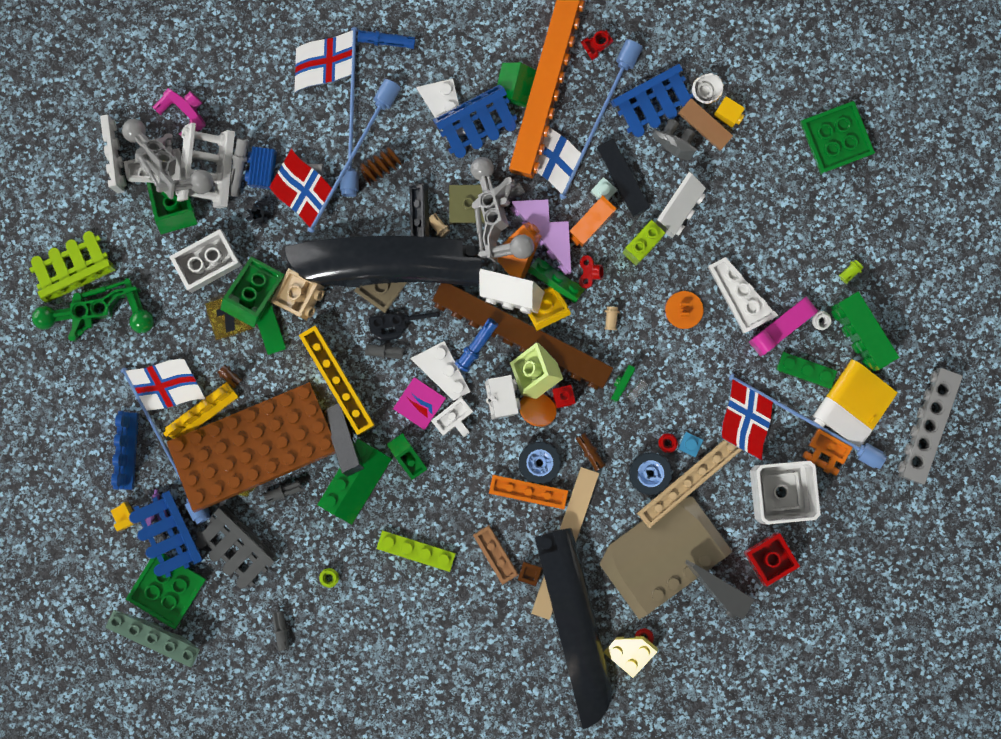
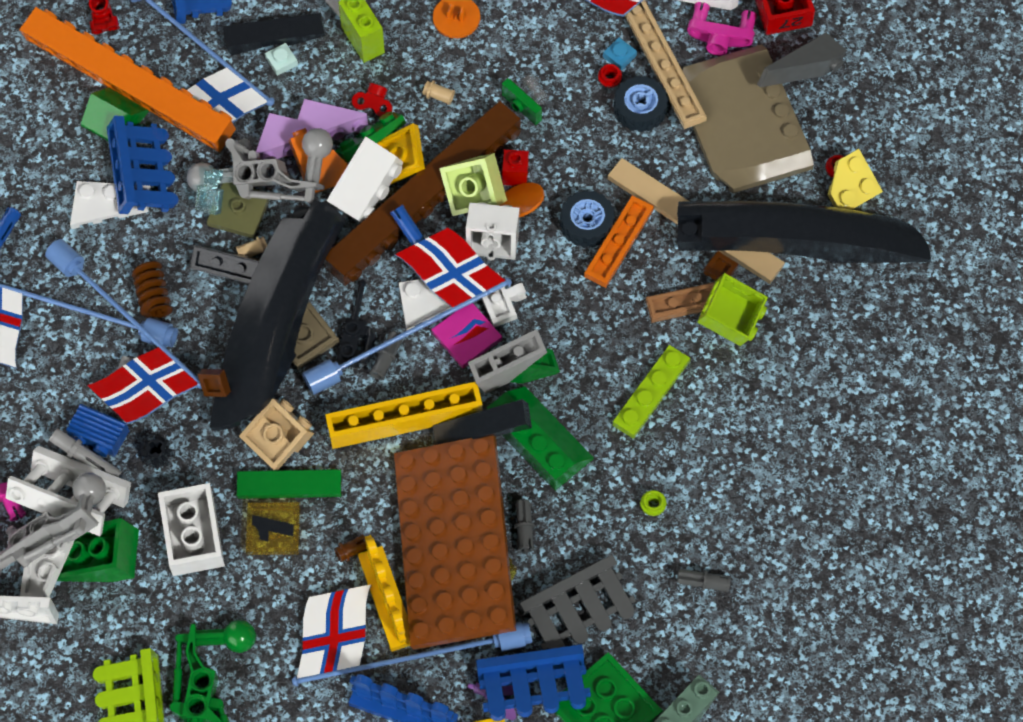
camera: 70 degrees left, 20 degrees down
(251, 292) = (254, 484): green slope -> none
(311, 238) = (214, 382): none -> reddish brown plate
(393, 442) = (507, 361): none -> light grey slope
(458, 376) = (448, 270): none -> flag
(465, 179) = (208, 195): none -> clear light blue plate
(494, 593) = (733, 310): none -> lime piece
(590, 451) = (592, 160): reddish brown pin -> none
(592, 222) = (313, 71): orange slope -> none
(727, 516) = (718, 35): none -> dark pink connector

